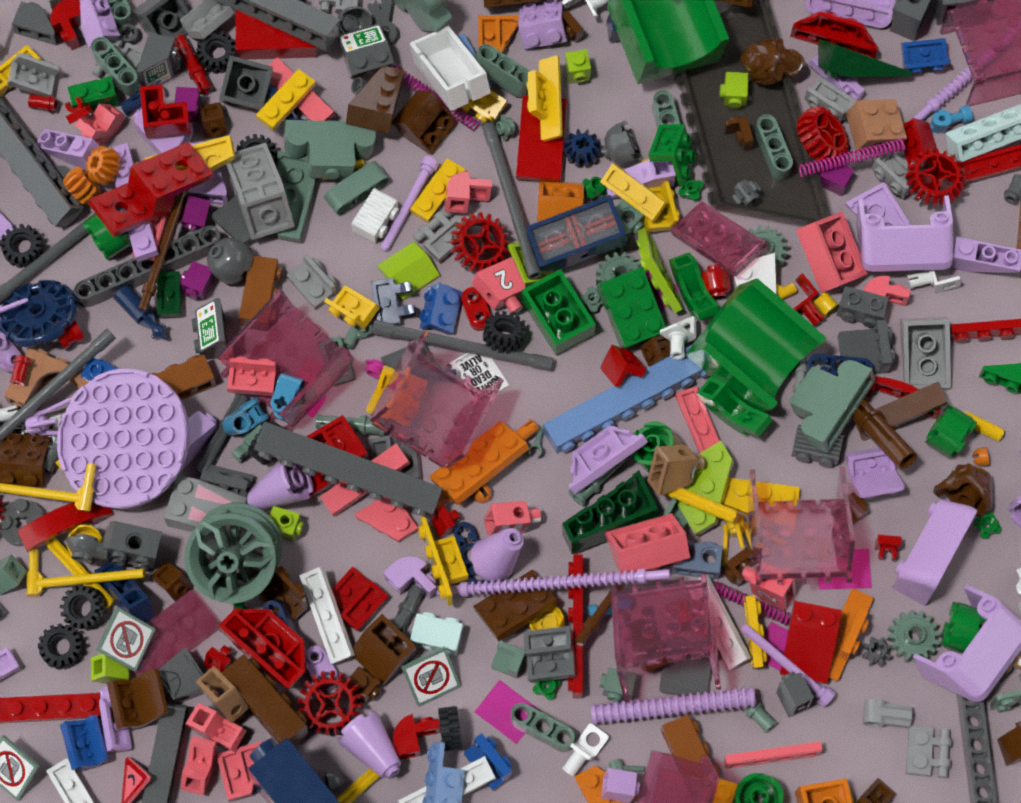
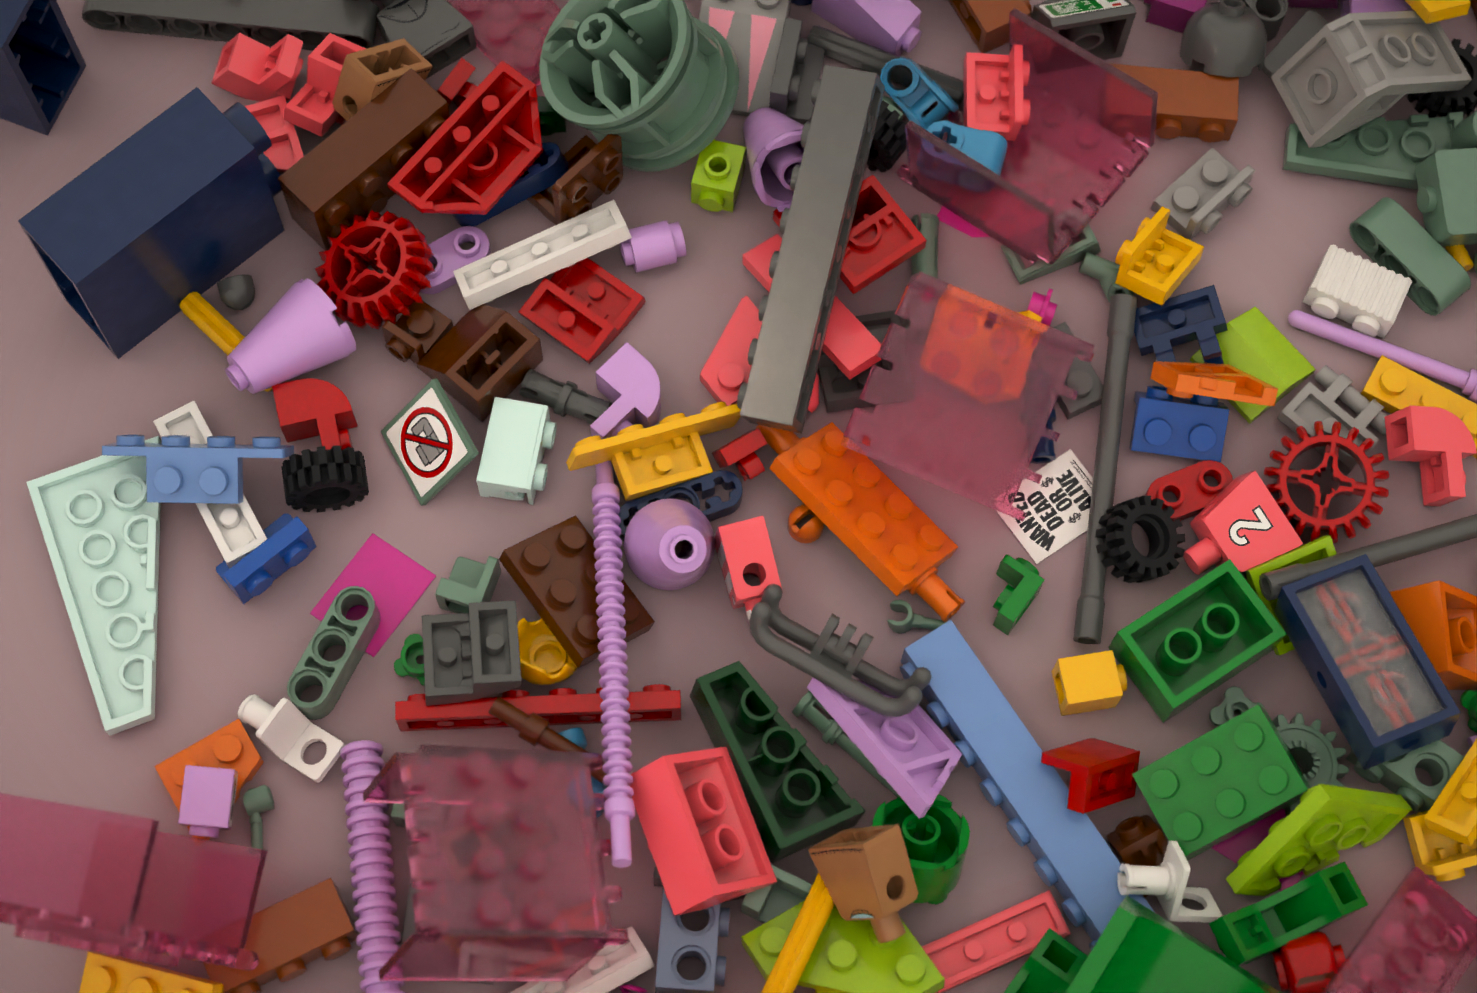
camera: 85 degrees right, 0 degrees up
(323, 556) = (653, 246): none -> lavender brick
(426, 286) = (1213, 381): none -> orange wing
(531, 394) = (1015, 601): none -> green bracket
(563, 476) = (834, 658): none -> dark grey piece
(575, 365) = (1088, 682): none -> yellow brick

